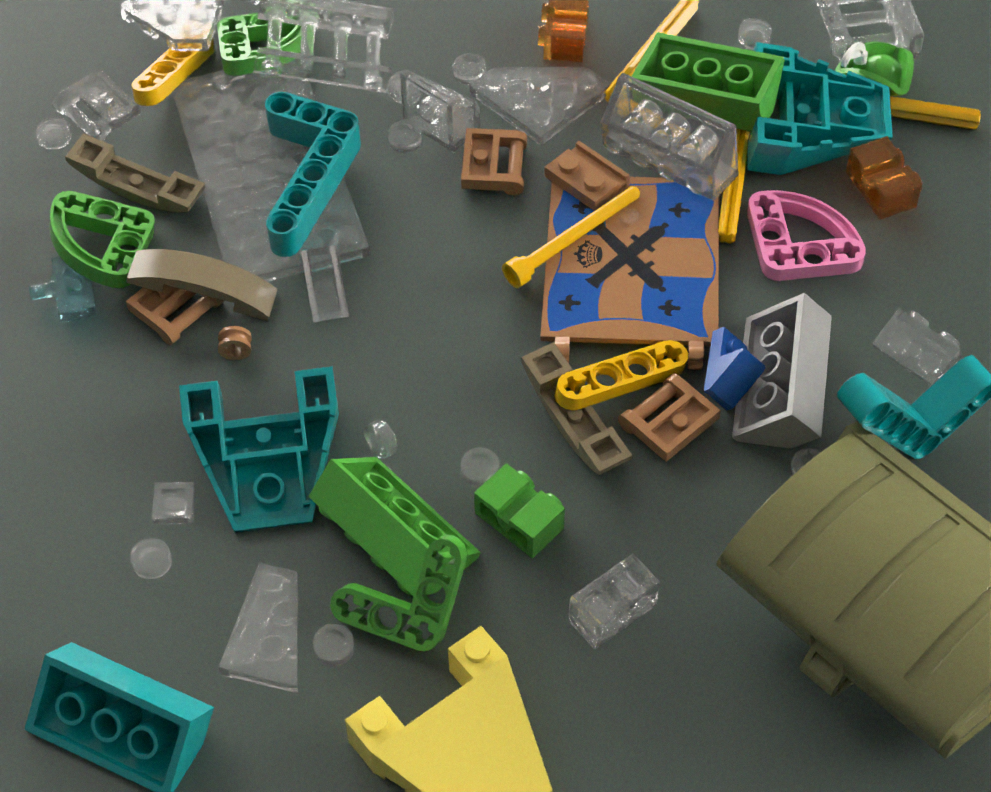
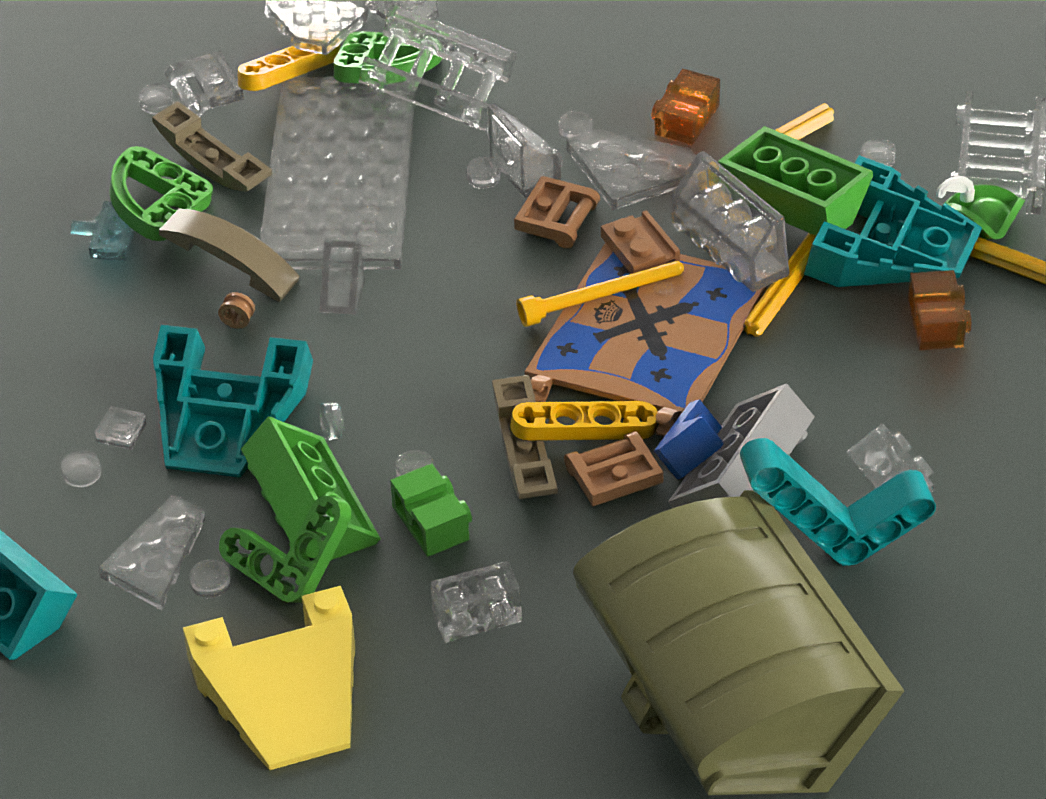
camera: 20 degrees right, 10 degrees down
(156, 306) = (179, 263): medium nougat plate -> none
(333, 145) = (399, 161): teal beam -> none
(782, 249) = (804, 352): bright pink beam -> none

